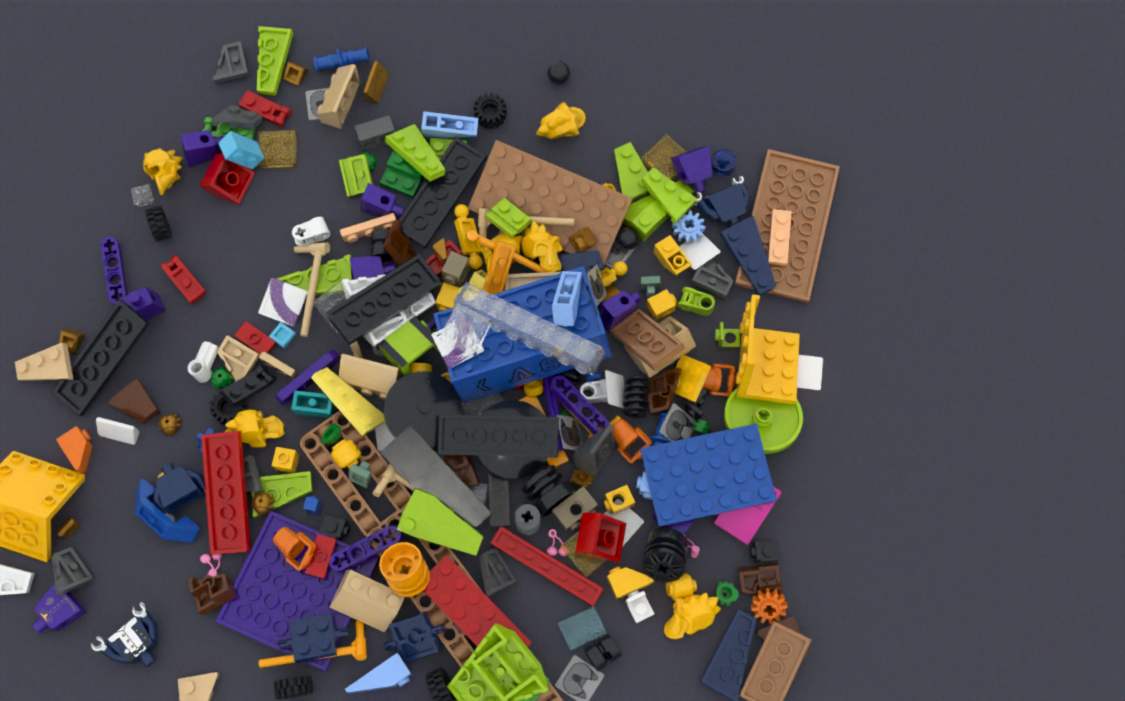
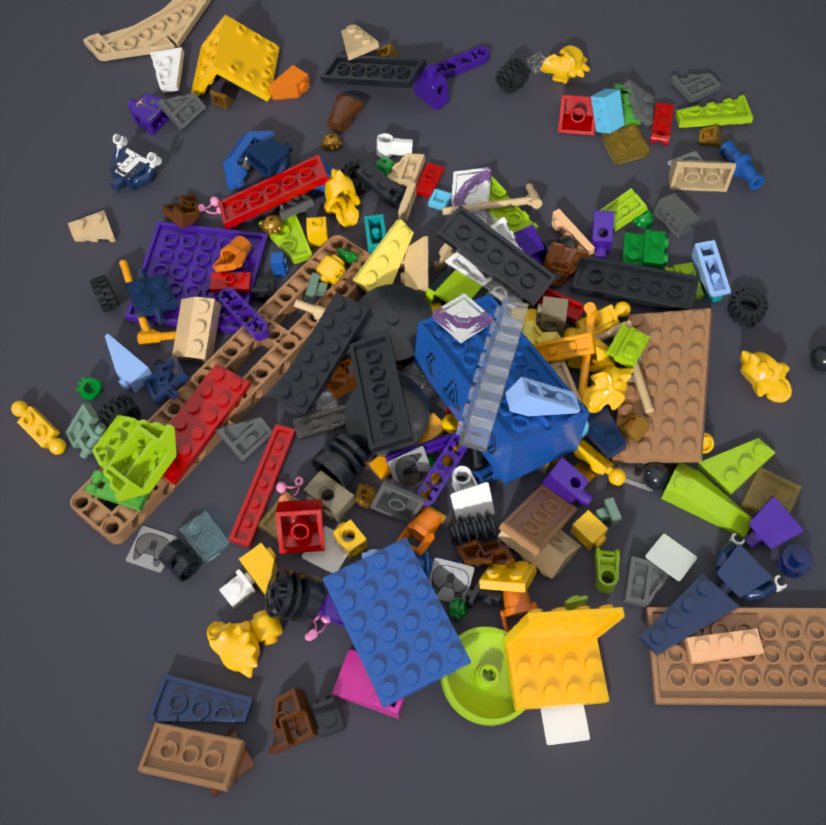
camera: 80 degrees right, 10 degrees down
(117, 431) = (314, 107): white slope -> none
(183, 279) = (468, 112): red plate -> none
(199, 147) = (597, 78): dark purple torso -> none
(304, 379) = (390, 218): dark purple beam -> none
(312, 231) = (550, 192): white piece -> none
(376, 83) = (731, 200): pearl gold slope -> none
(404, 569) = (222, 343): light orange wheel -> none
(416, 151) = (668, 248): lime wing -> none
(434, 522) = (277, 357): lime wedge -> none
(440, 250) = (573, 296): pearl gold slope -> none
(466, 329) = (474, 315): clear plate -> none
(522, 514) = (303, 448): dark grey piece -> none
(596, 284) = (582, 448): sticker -> none
(671, 196) = (725, 505): lime wing -> none
(671, 256) = (652, 525): yellow slope -> none
(689, 233) = (704, 542): light blue gear -> none
(728, 589) = (269, 674): green animal -> none
(776, 608) = (262, 733): orange gear -> none

